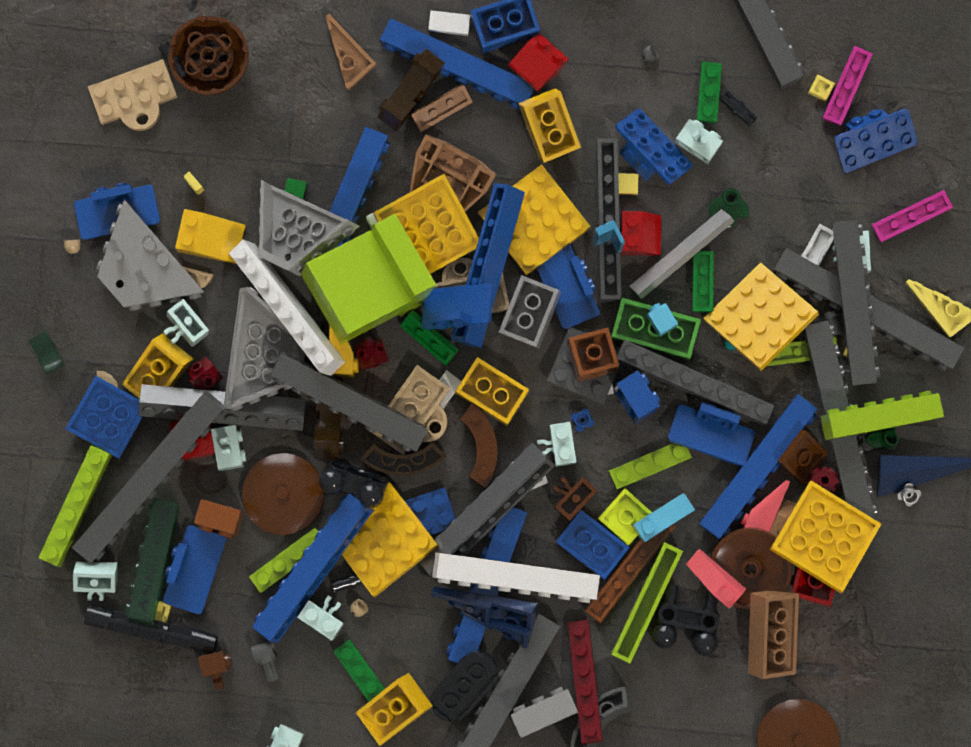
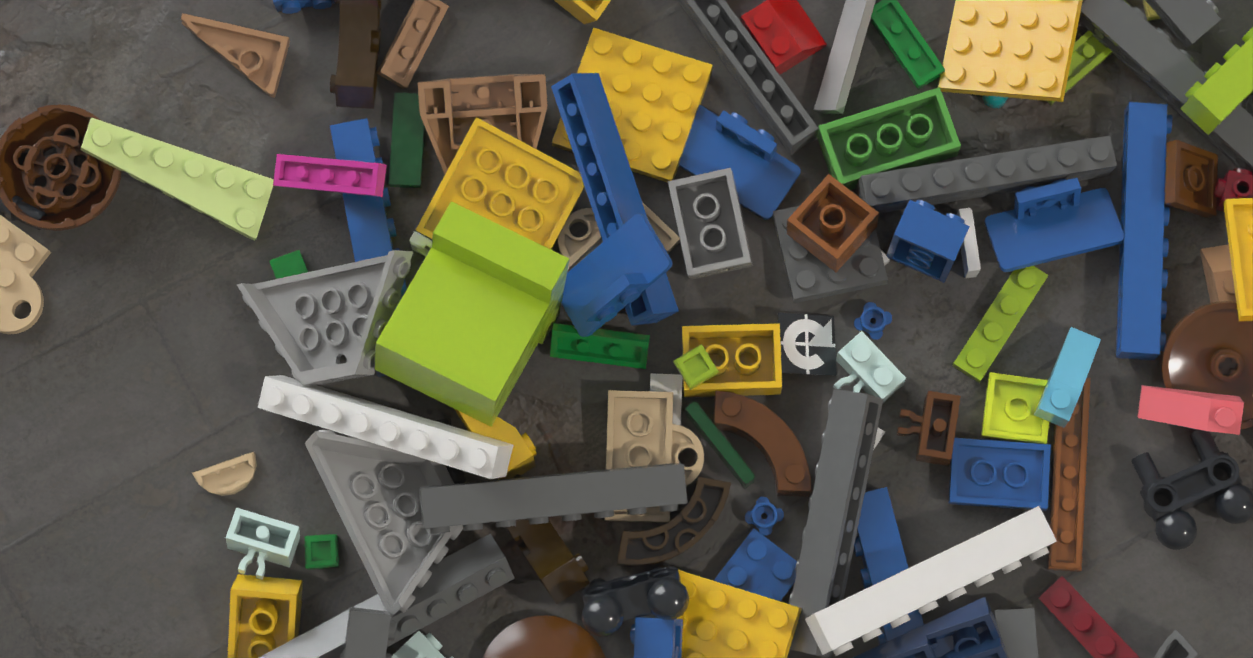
camera: 30 degrees left, 5 degrees down
(72, 246) = (36, 539): tan hinge -> none
(99, 212) = (66, 452): blue bracket -> none
(142, 264) = (150, 499): light grey piece -> none
(195, 185) = (147, 348): light yellow tile -> none
(204, 374) = (331, 591): dark red brick -> none
(208, 236) = (215, 405): yellow slope -> none
(214, 350) = (321, 551): none -> green tile
(280, 115) = (207, 185): none -> yellowish green wing
(347, 154) = (330, 175): none -> dark pink plate
(371, 353) = (536, 415): dark red brick -> none
(401, 161) = (406, 142): none -> dark green tile
(454, 489) = (773, 515): none -> blue plate
(456, 432) = (720, 445): none -> dark green tile
(469, 383) = (696, 367): none -> lime tile
(539, 409) = (807, 344): none -> sticker
(607, 232) = (754, 46): dark azure panel -> none
(646, 603) = (1124, 502): lime brick -> none
(660, 412) = (969, 247): none -> white tile
(661, 319) = (890, 117): medium azure brick -> none
(764, 513) = (1192, 279): coral slope -> none

